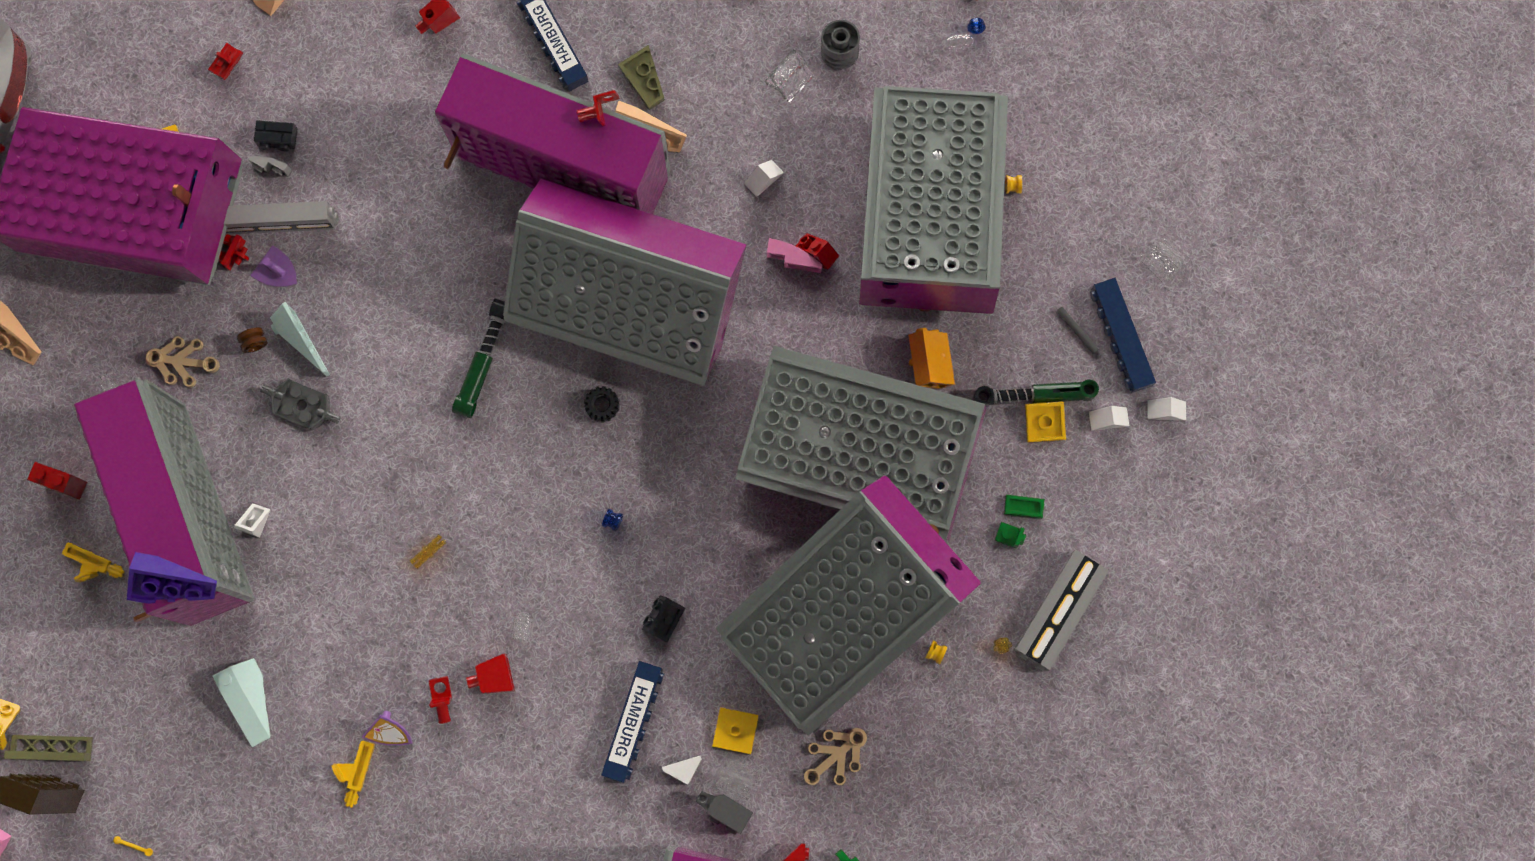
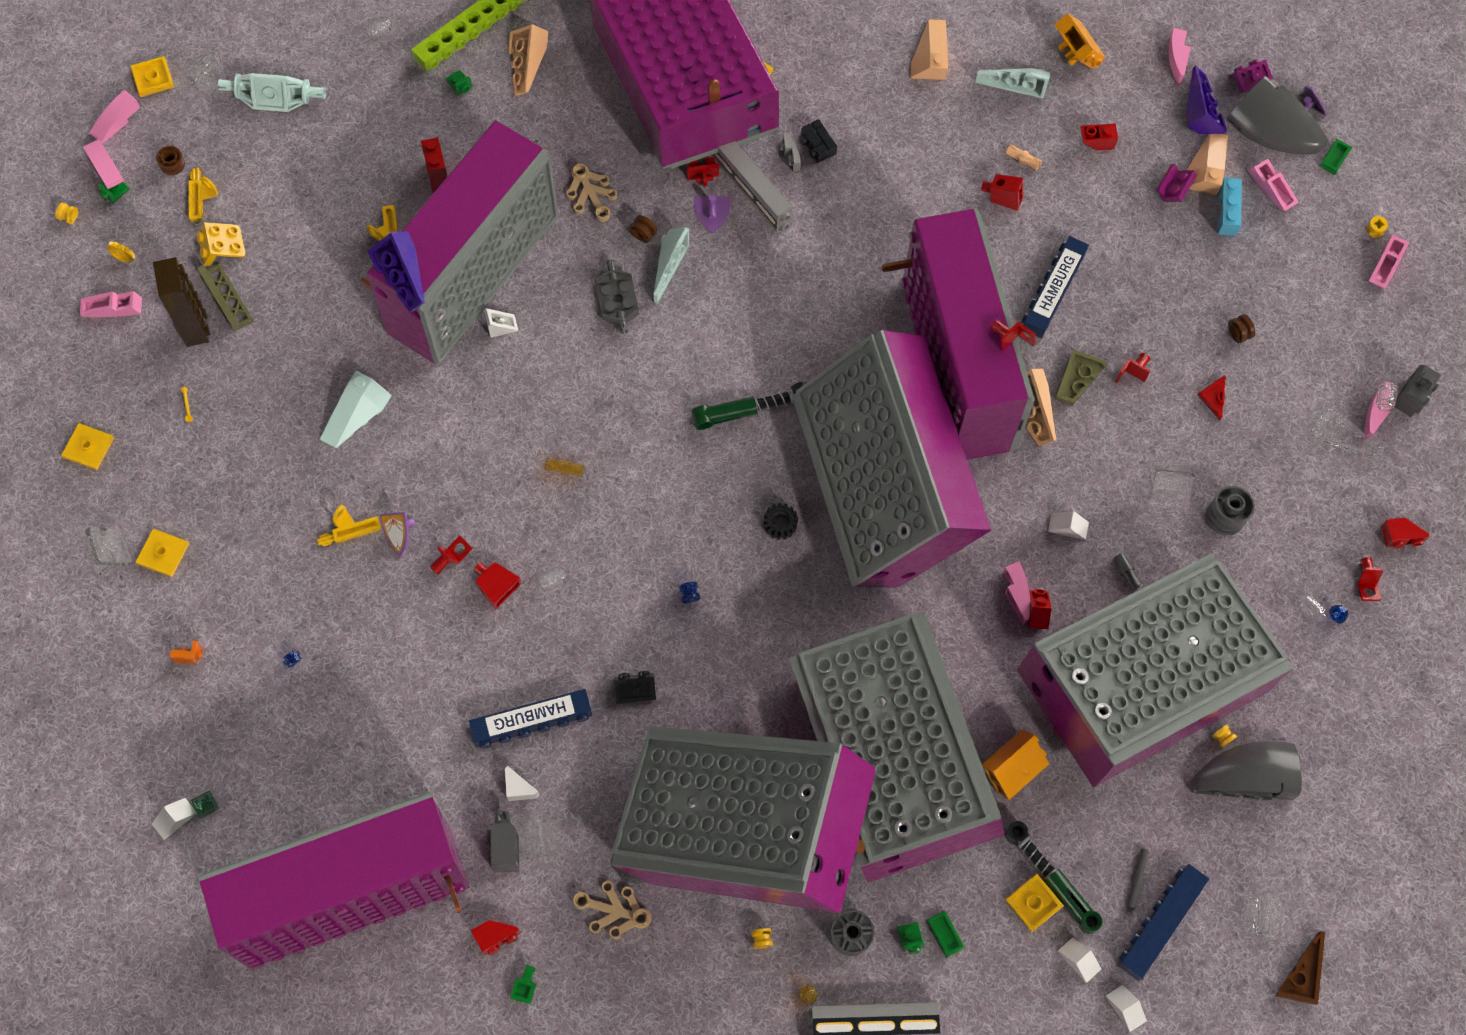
camera: 55 degrees right, 10 degrees down
(225, 61) = (849, 69): red hips -> none
(669, 26) = (1136, 368): none -> red bracket
(735, 730) = (579, 810): yellow plate -> none
(832, 159) = (1127, 571): none -> dark grey axle
(990, 575) = (857, 921): none -> dark grey wheel
(1054, 183) = (1252, 772): none -> dark grey panel
(1230, 262) = (1305, 977): none -> reddish brown wing

